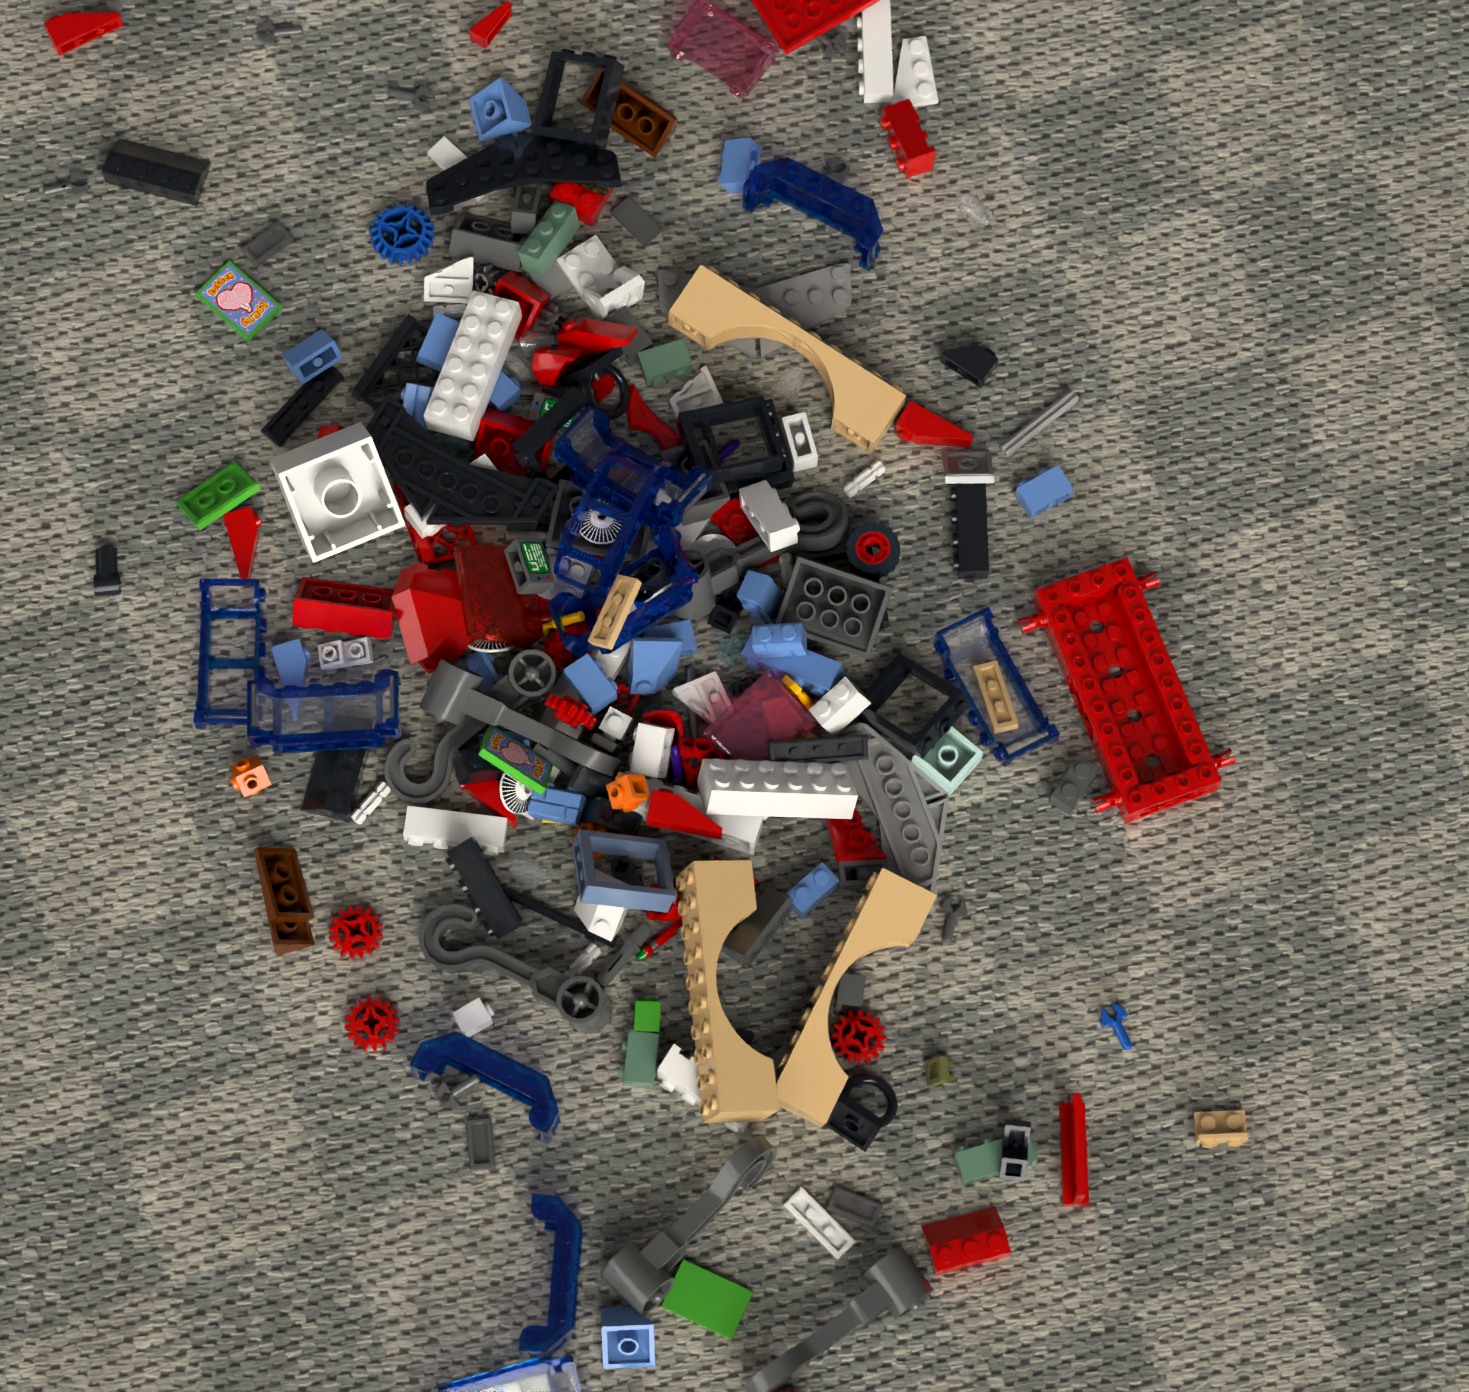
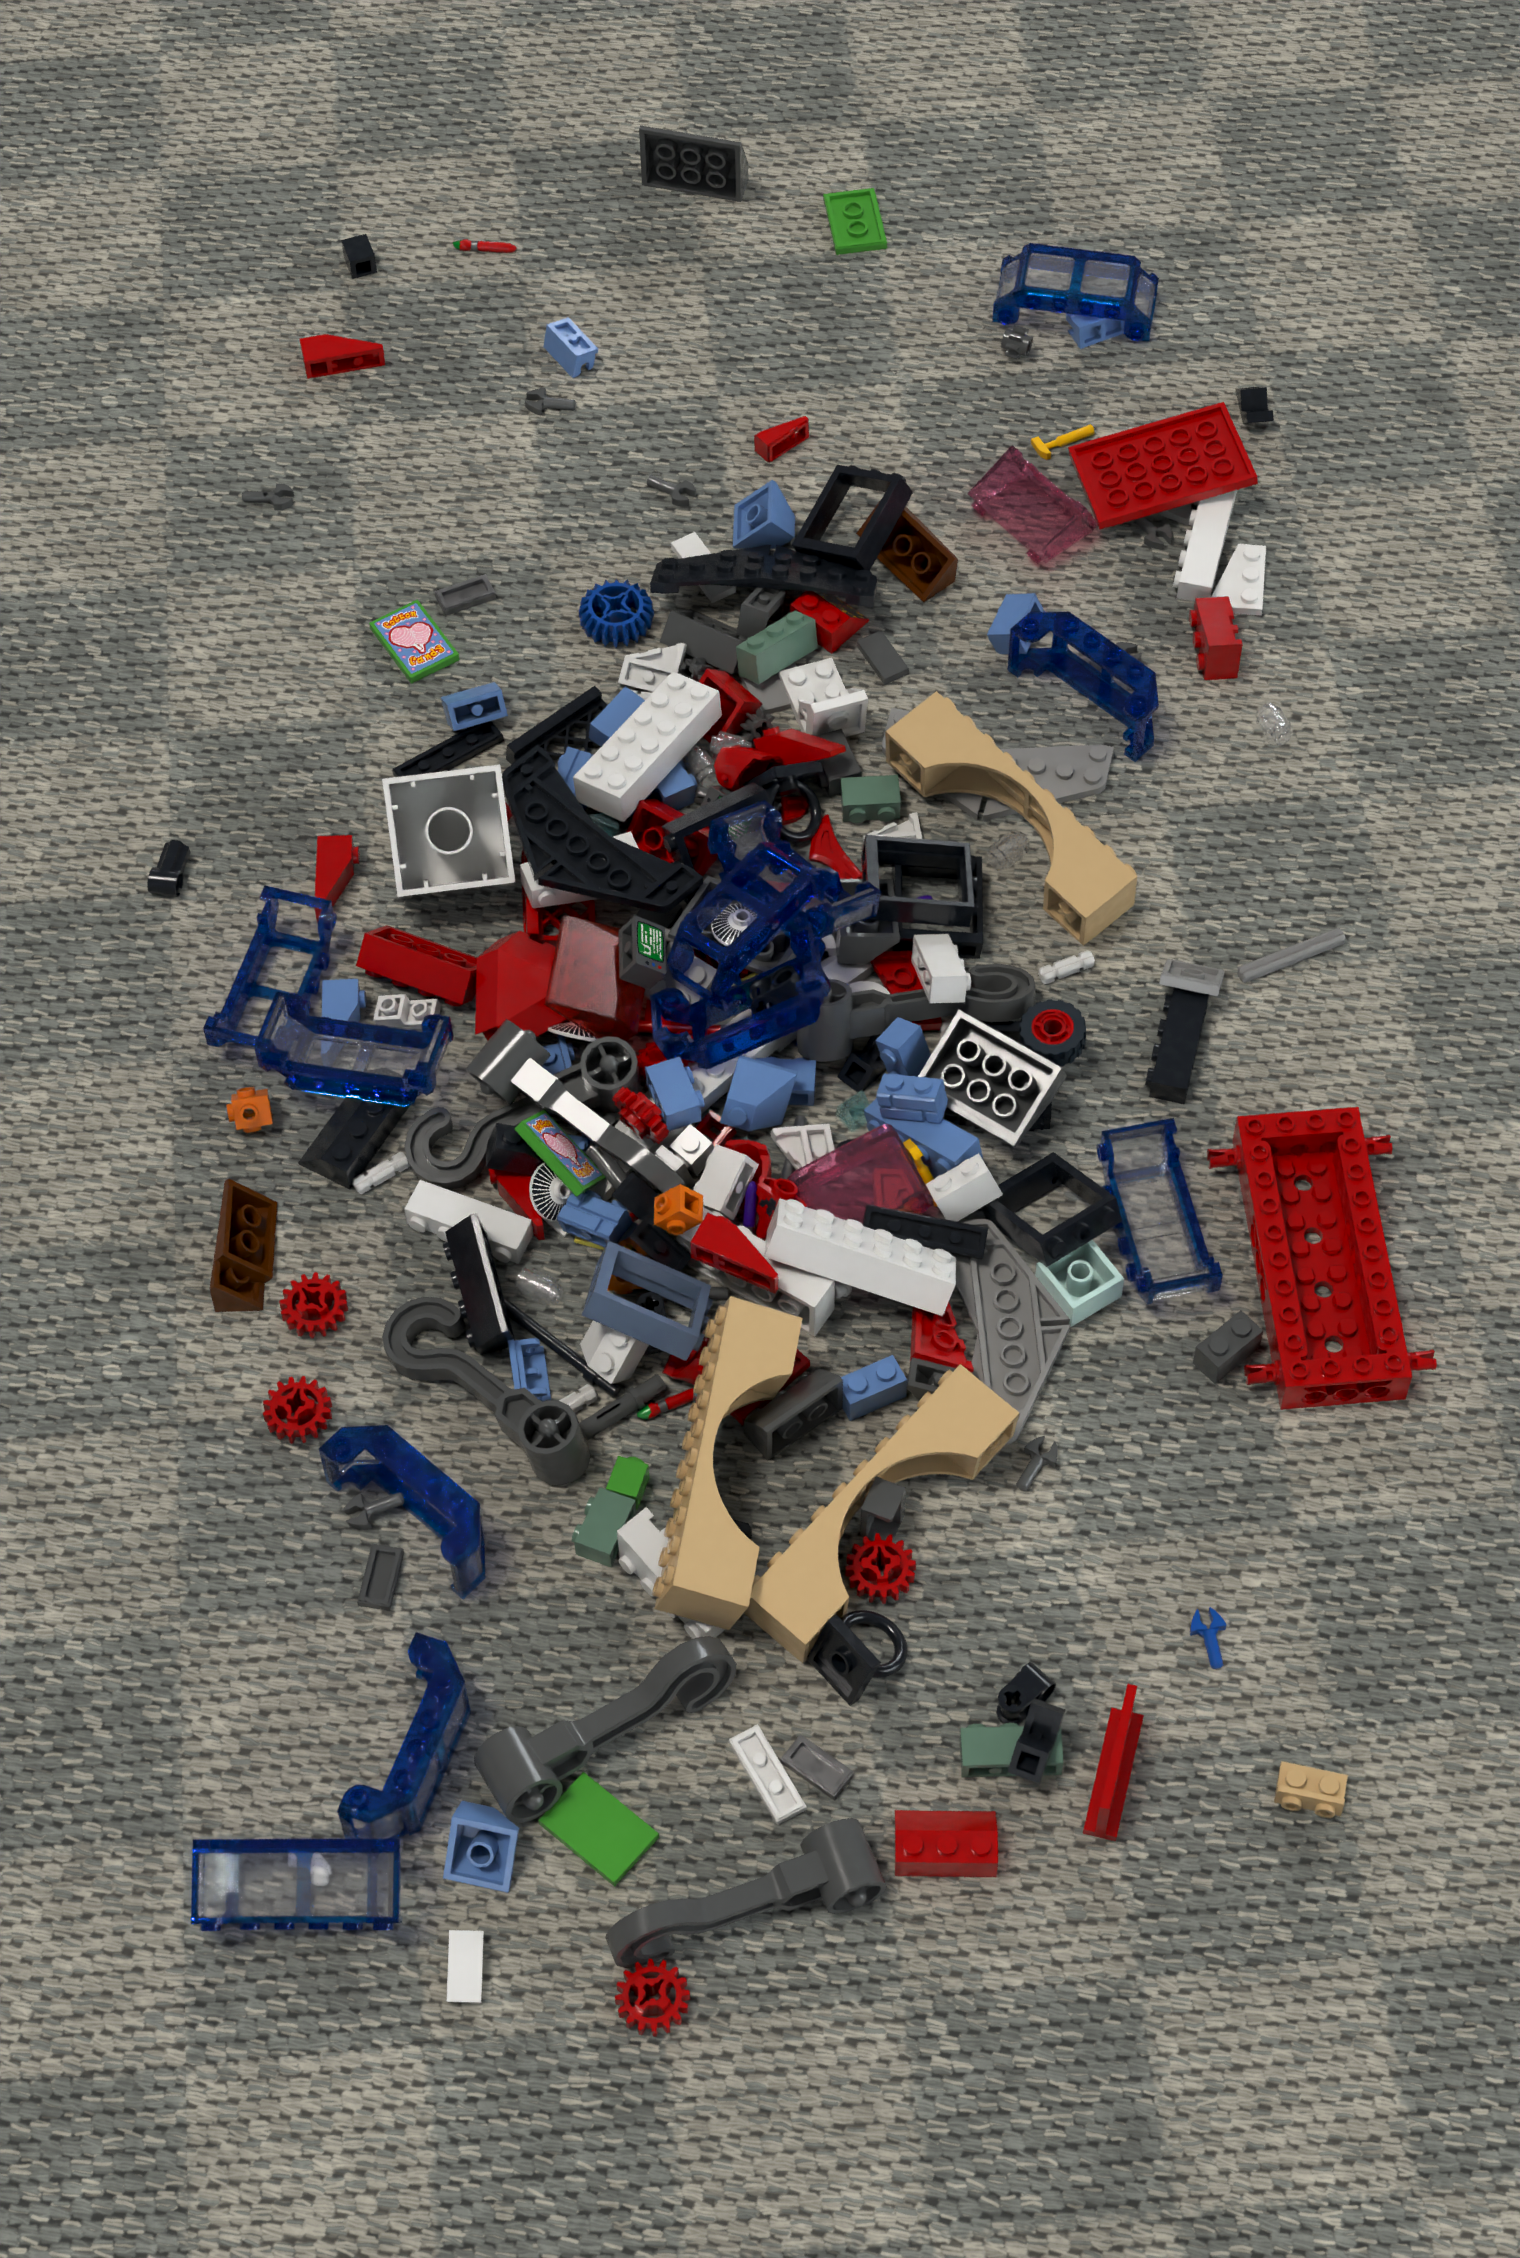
camera: 20 degrees right, 15 degrees down
(156, 171) = (367, 502): black slope -> none
(218, 495) = (320, 819): bright green tile -> none
(473, 1017) = (421, 1429): white brick -> none
(542, 945) = (529, 1367): none -> medium blue hinge
(566, 620) = (642, 1036): yellow piece -> none
(614, 611) = (723, 1013): tan plate -> none
(799, 442) = (1000, 908): white brick -> none
(926, 428) = (1157, 930): red slope -> none
(938, 1071) = (968, 1630): olive tile -> none
(971, 363) = (1226, 874): black slope -> none
(994, 1107) = (1027, 1685): none -> black piece
(995, 697) = (1157, 1225): tan plate -> none
(1043, 491) = (1277, 1024): medium blue brick -> none

